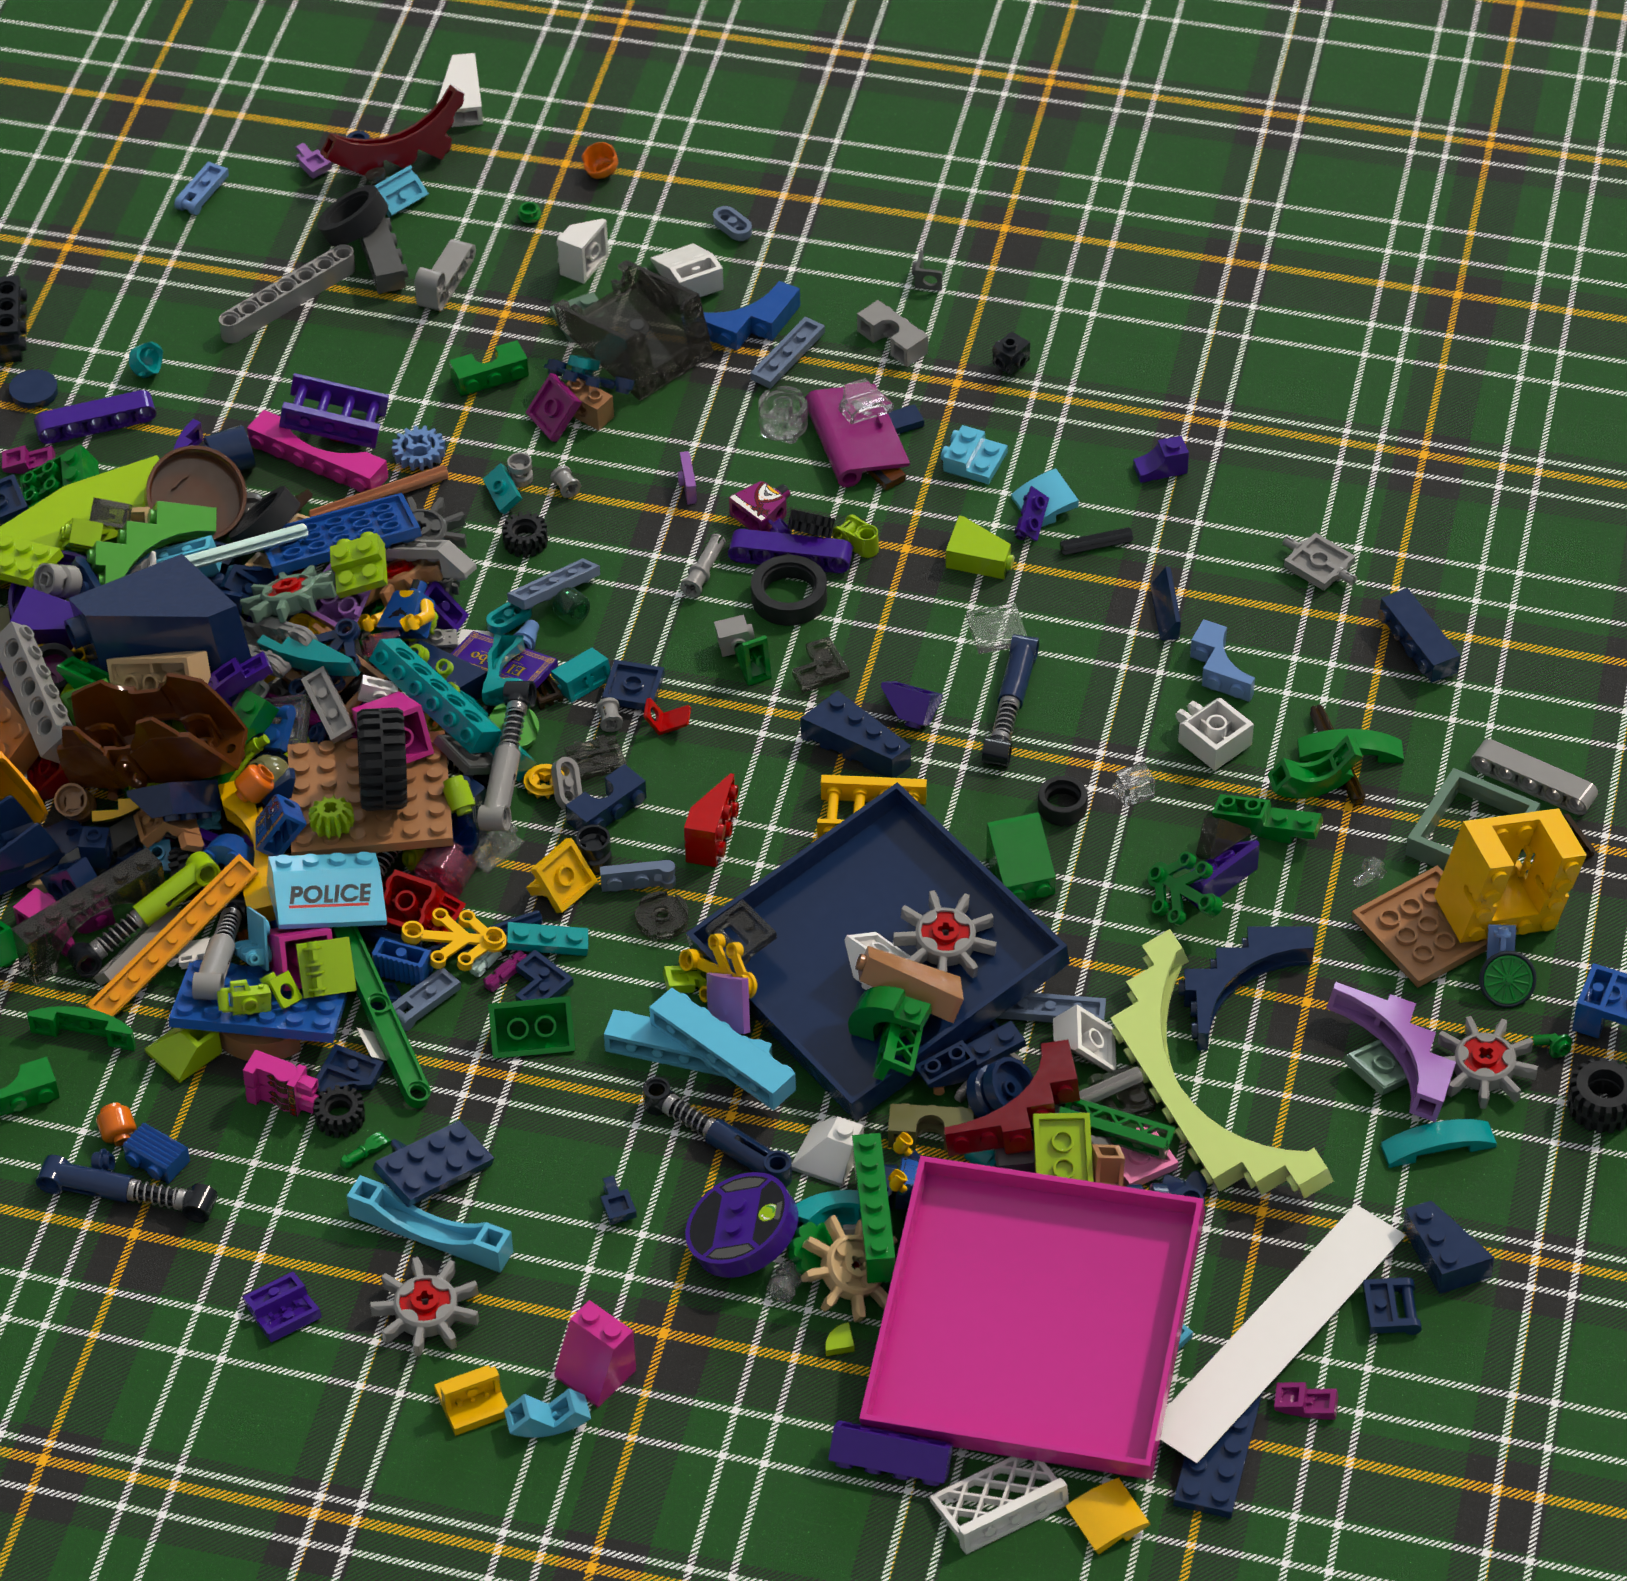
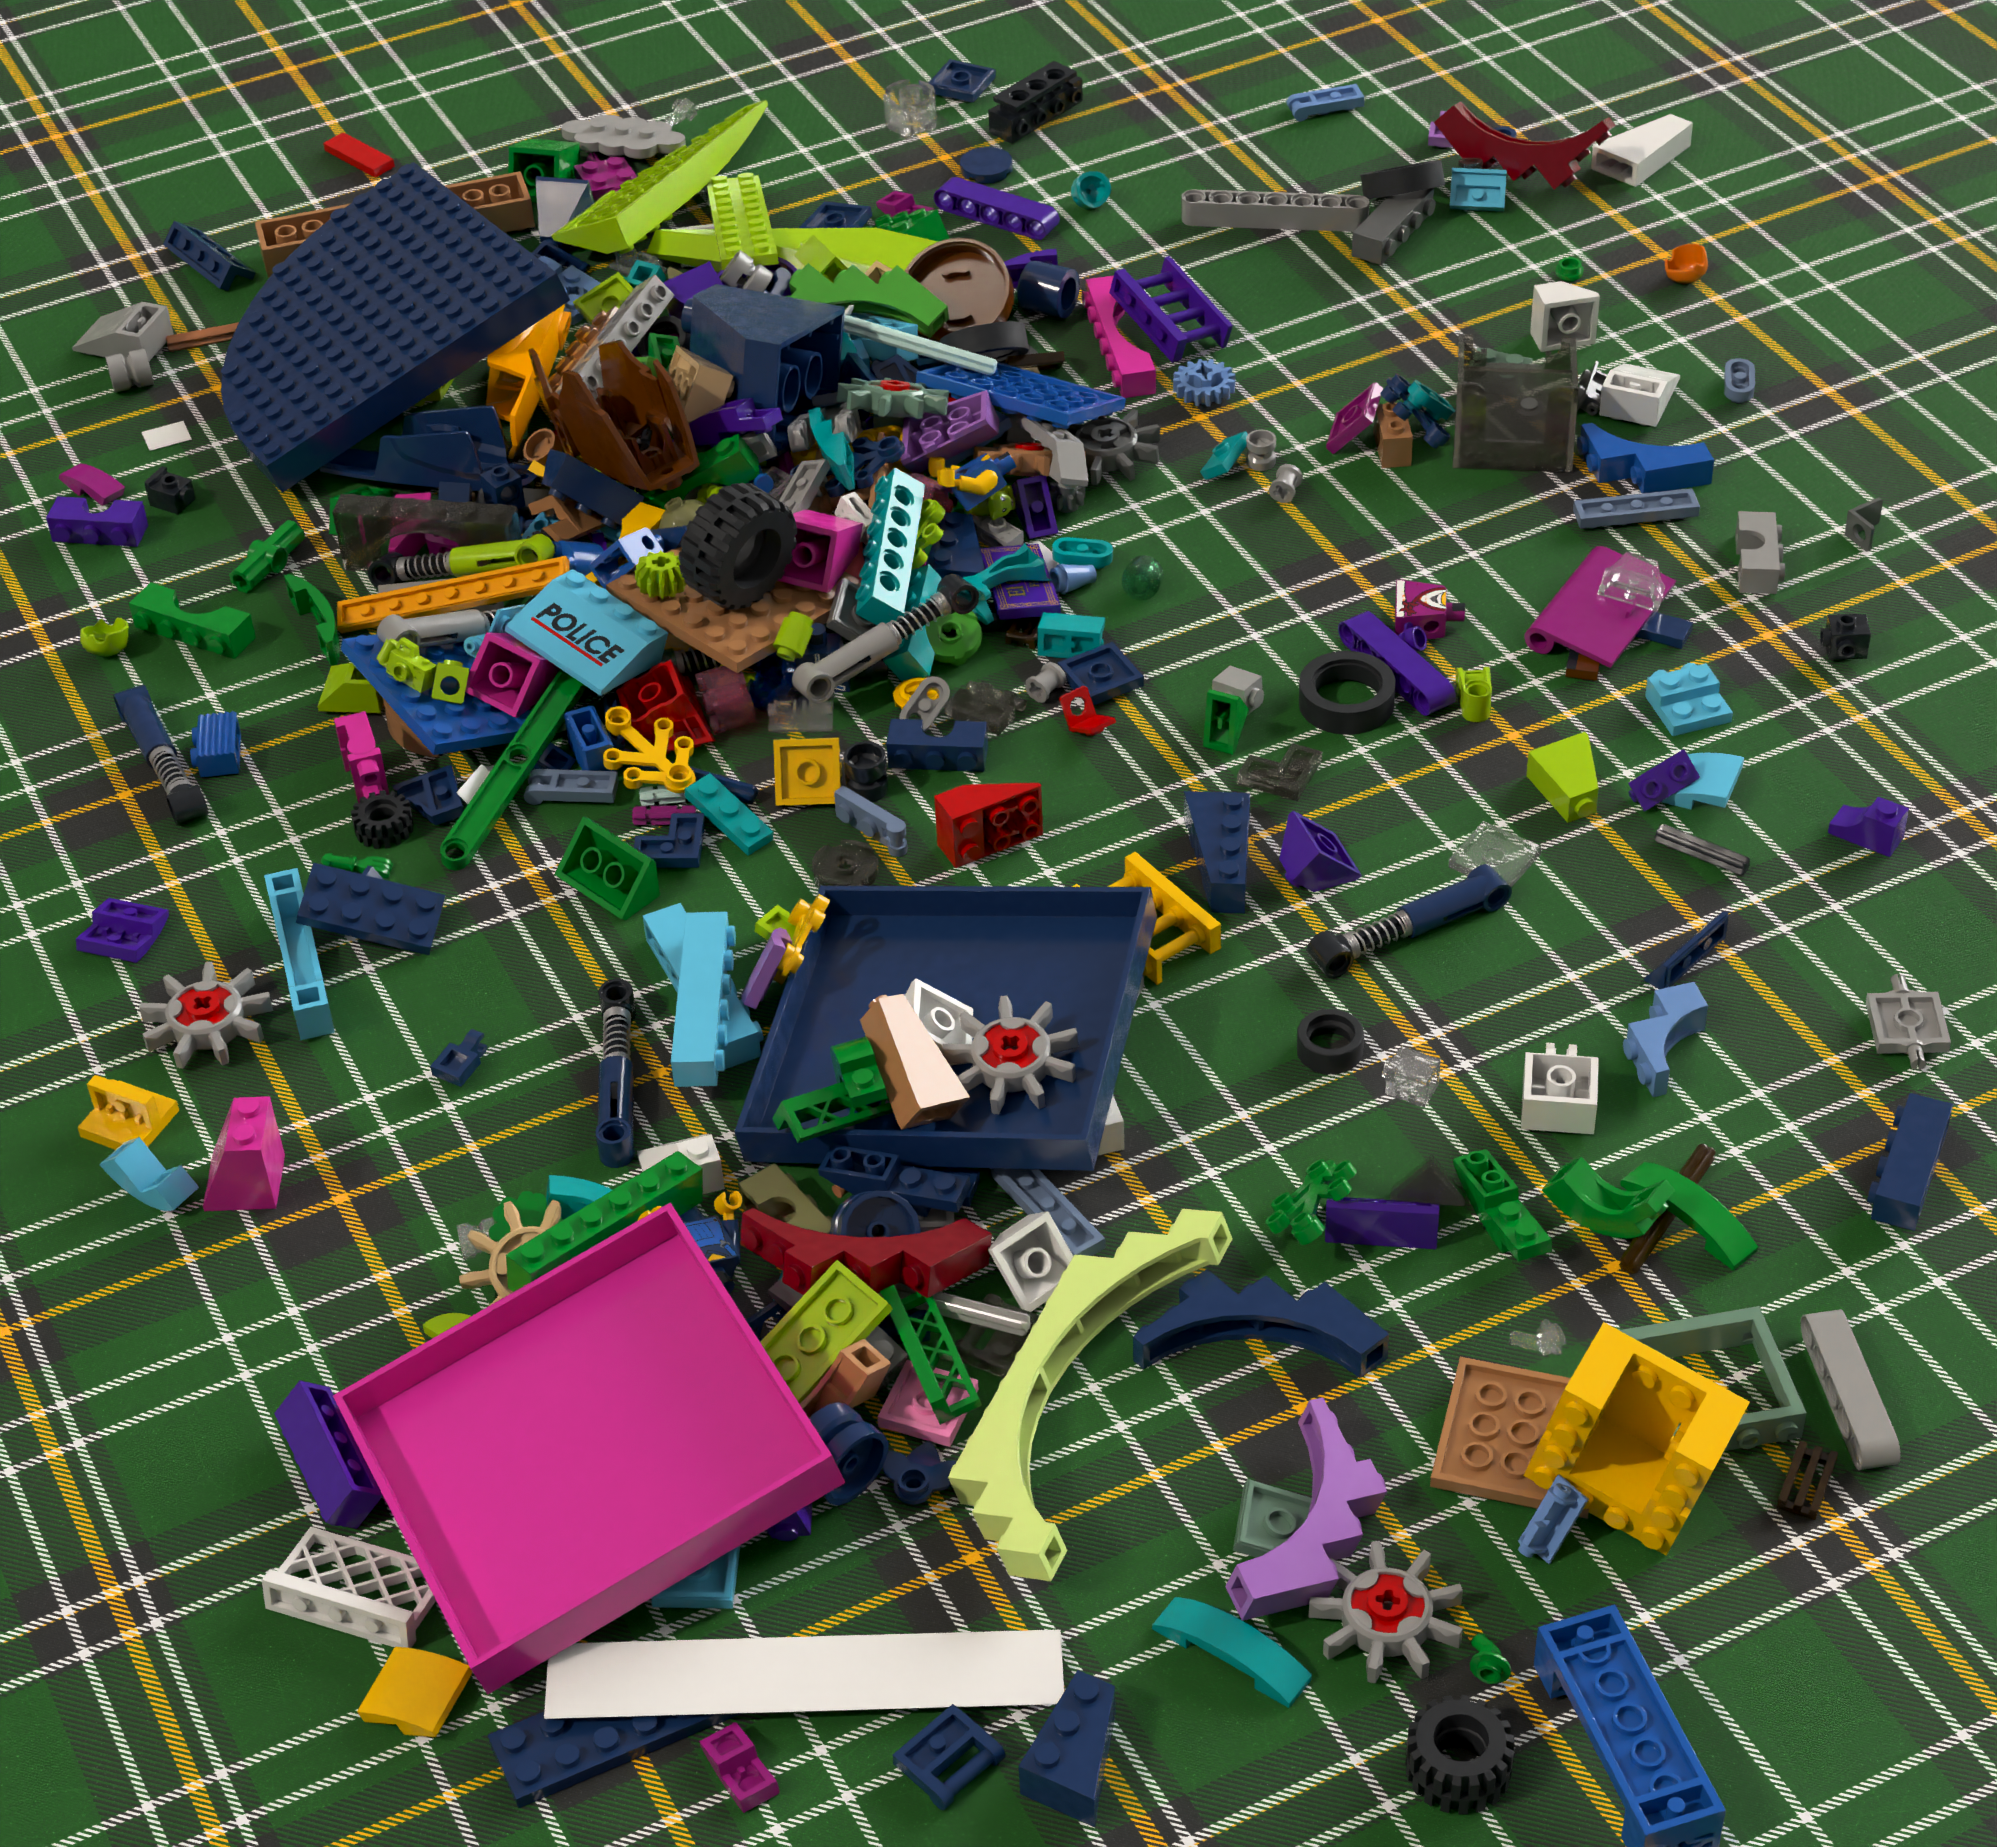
camera: 50 degrees right, 5 degrees down
(103, 1160) = (174, 715): dark blue plate -> none
(110, 513) = (855, 252): clear smoke slope -> none
(115, 1123) = (226, 696): orange head -> none
(254, 783) = (652, 511): orange head -> none
(326, 967) = (506, 691): lime hinge -> none
(359, 564) = (971, 405): lime plate -> none
(399, 486) = (1144, 401): nougat axle -> none
(438, 284) = (1404, 277): light grey beam -> none
(474, 376) = (1329, 357): green arch -> none
(527, 544) = (1191, 501): black tyre -> none
(549, 585) = (1167, 553): sand blue plate -> none
(686, 477) = (1393, 546): medium lavender plate -> none
(699, 572) = (1292, 626): light grey pin -> none
(741, 1224) = (502, 1154): piece -> none
(747, 926) = (860, 917): clear smoke plate -> none
(783, 414) = (1549, 549): clear brick -> none
(811, 523) = (1438, 648): black tyre -> none
(1021, 856) = (1205, 1055): green slope -> none
(1507, 979) = (1523, 1552): green wheel -> none

